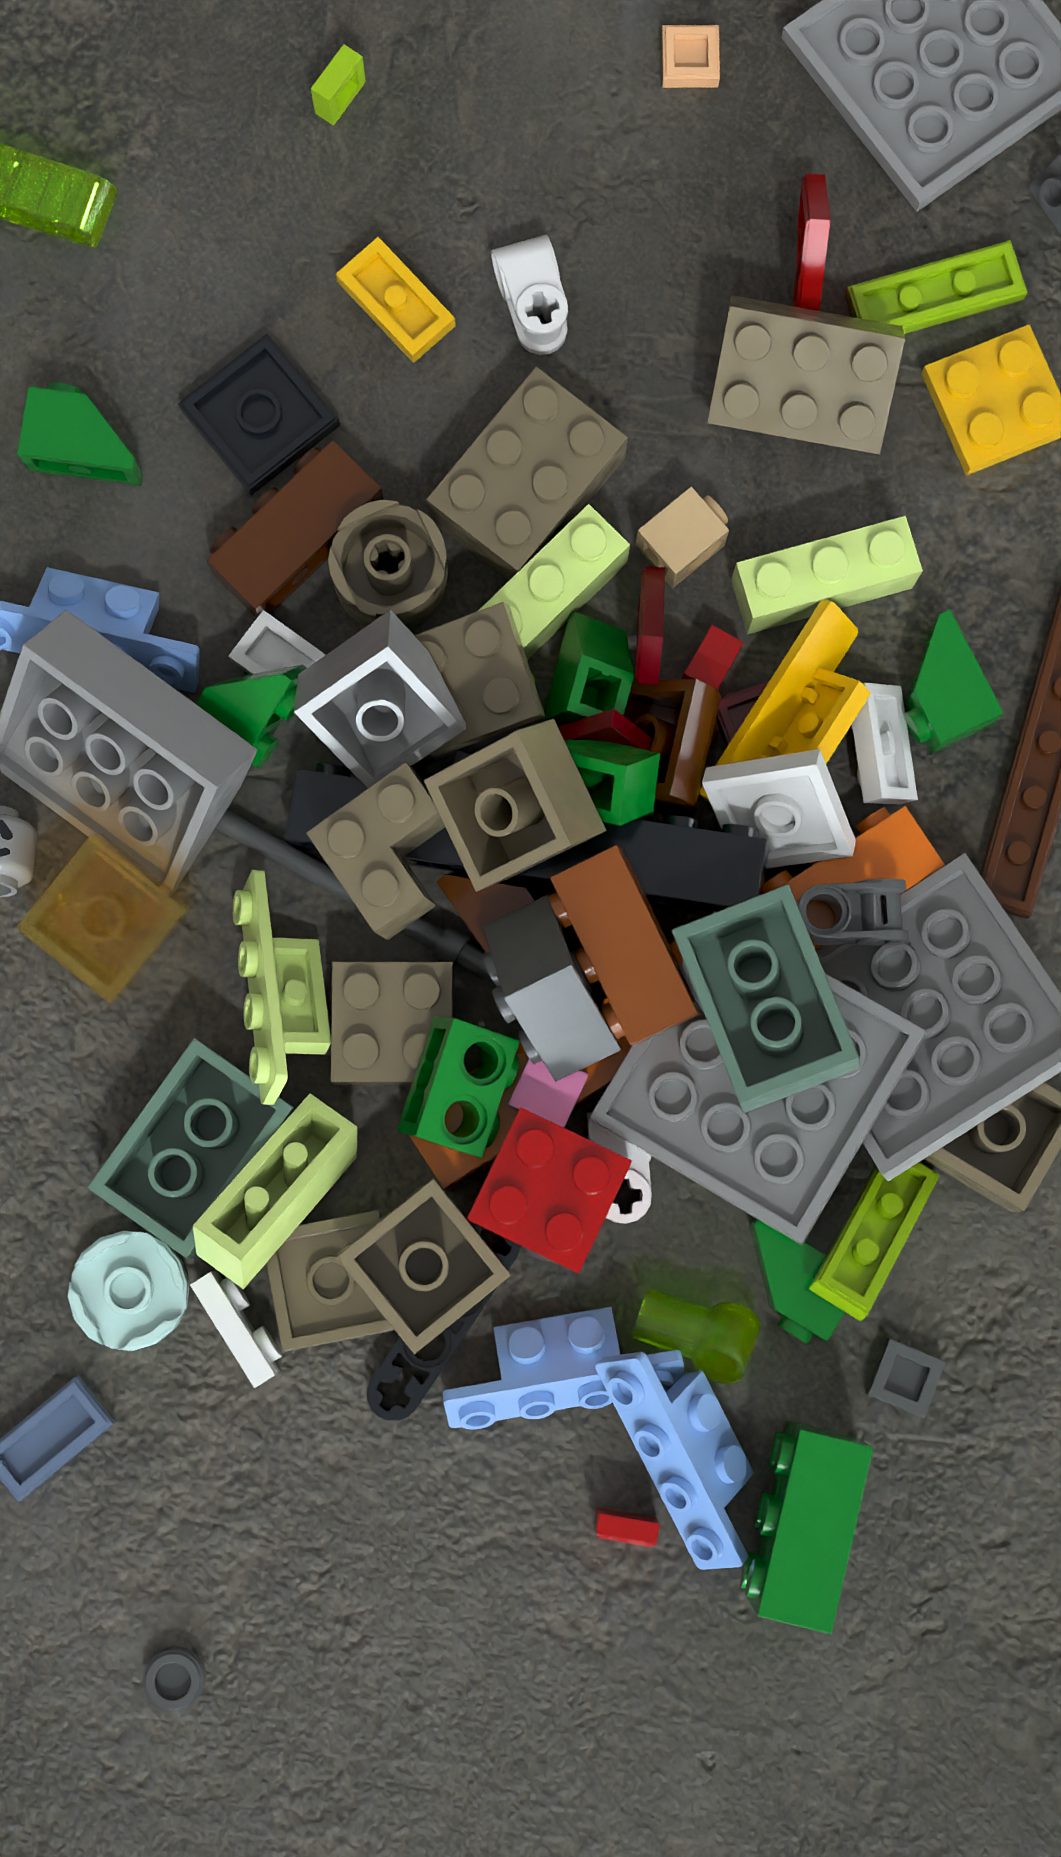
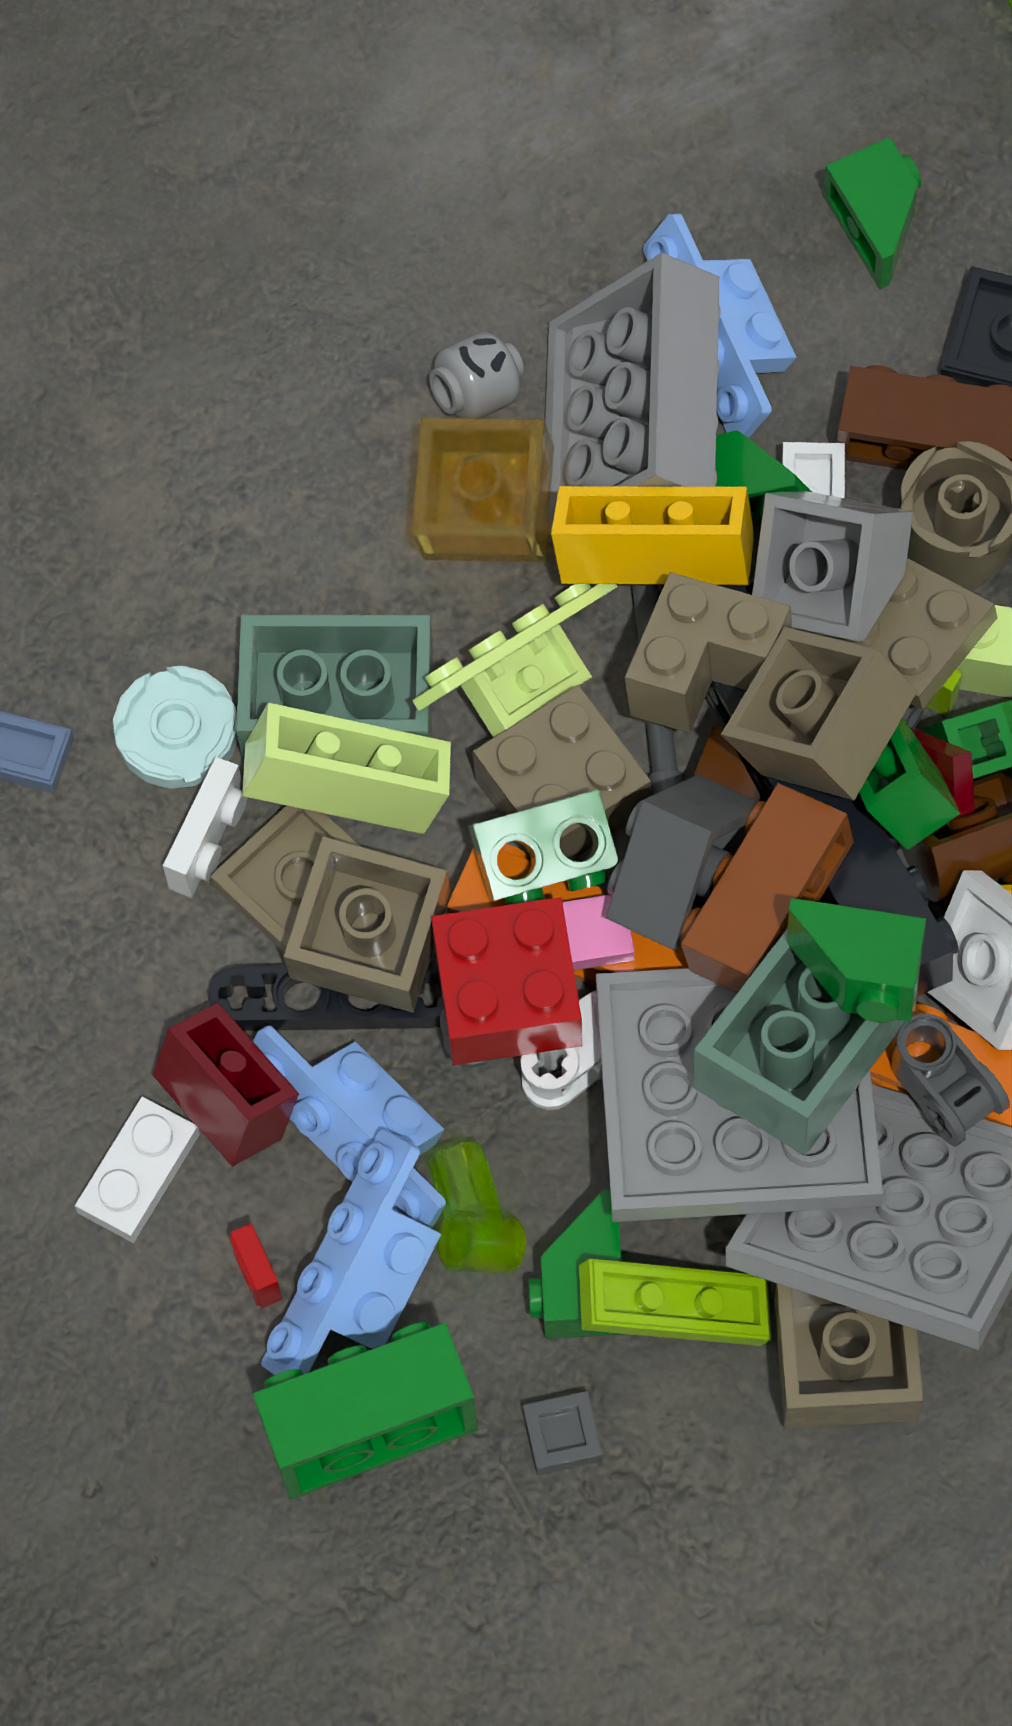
camera: 60 degrees right, 15 degrees down
(254, 819) = (652, 531): none -> yellow brick
(468, 1456) = (225, 1084): none -> dark red brick
(480, 1563) = (137, 1169): none -> white plate
(762, 924) = (860, 956): none -> green slope

